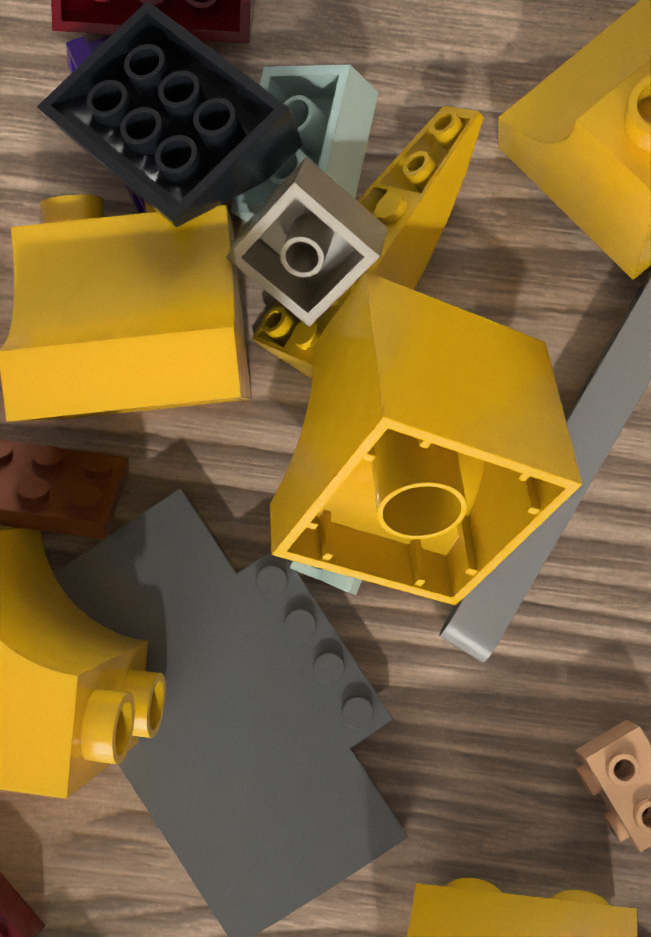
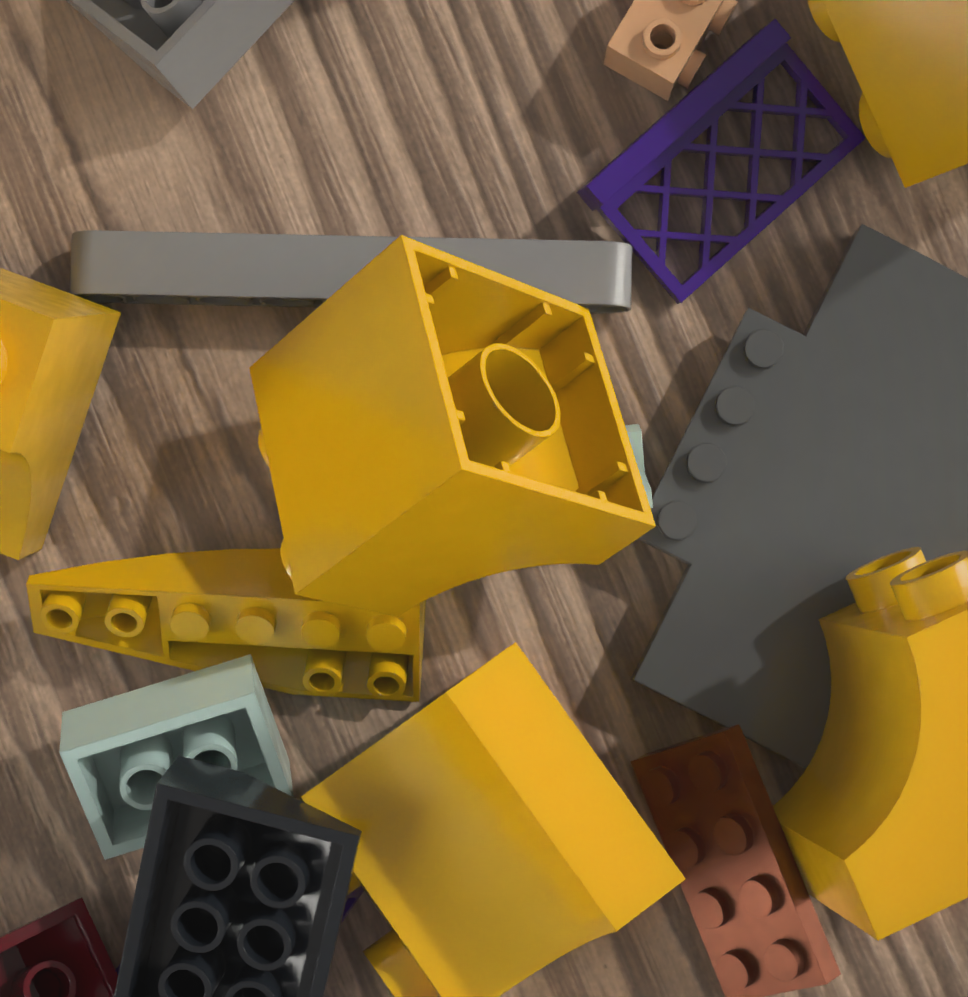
camera: 115 degrees left, 0 degrees up
(308, 242) = (293, 679): dark tan brick -> none
(553, 767) = (689, 119): none -> dark purple fence

